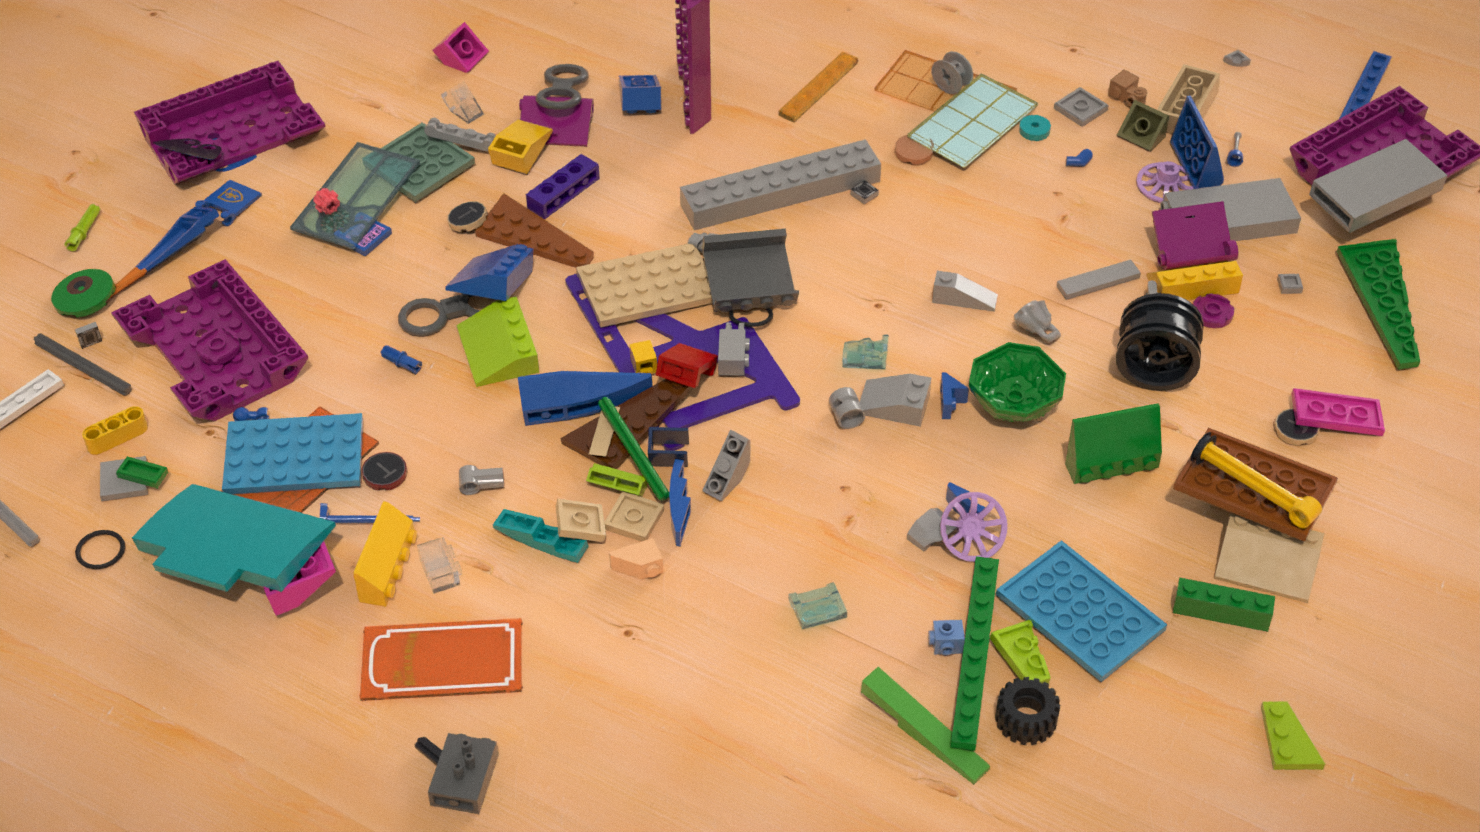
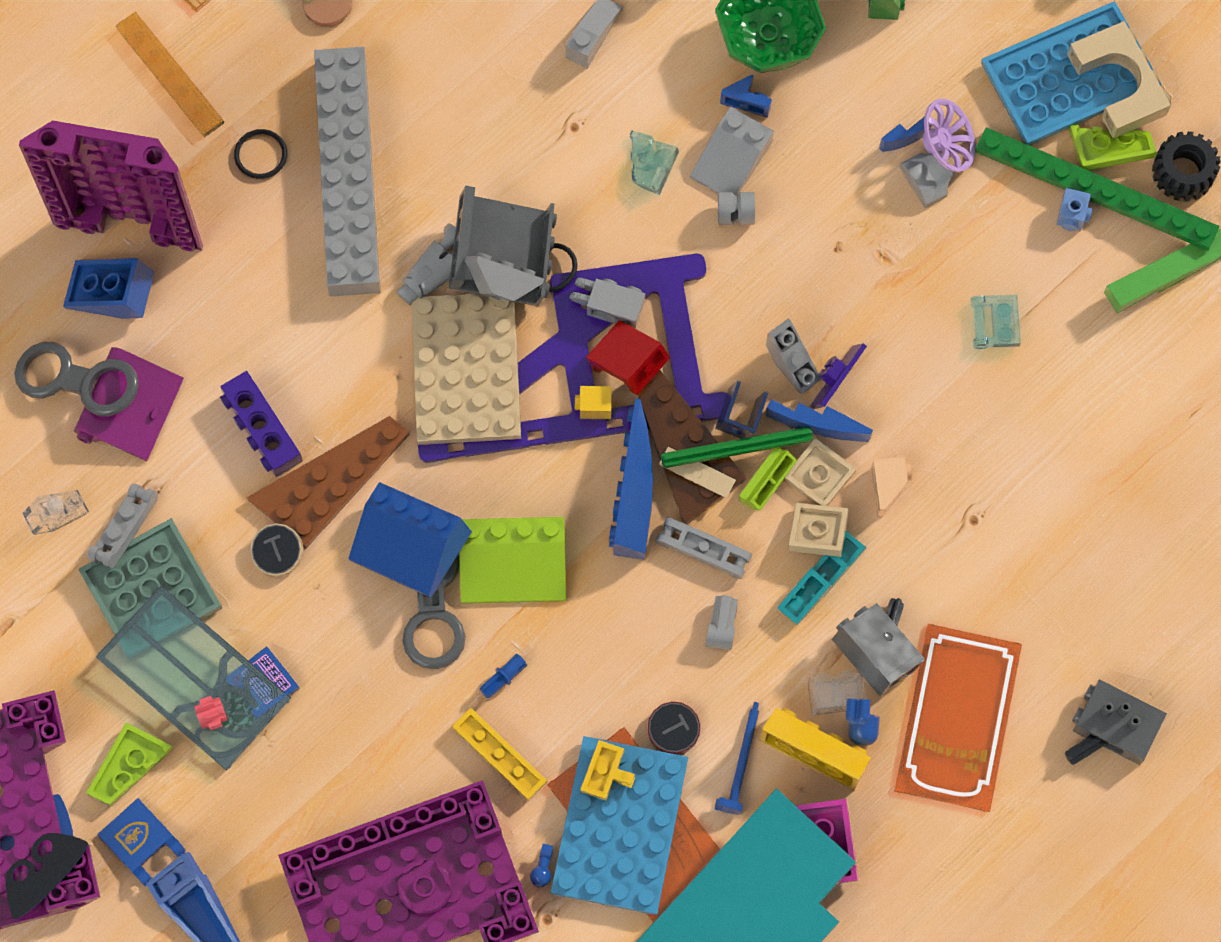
camera: 75 degrees left, 25 degrees up
(284, 179) = (126, 763): none -> lime wing
(329, 423) = (604, 770): none -> yellow plate
(336, 371) = (499, 754): none -> yellow plate
(413, 586) = (862, 724): none -> blue piece
(483, 574) = (878, 645): none -> piece
(518, 145) = (168, 454): yellow slope -> none
(543, 455) = (704, 547): none -> light grey plate
(717, 267) = (500, 278): none -> light grey slope
(724, 502) = (835, 373): none -> dark purple piece
(777, 132) = (264, 175): none -> black tyre
(864, 192) = (384, 82): tile -> none
(1077, 661) = (1119, 47): none -> tan arch

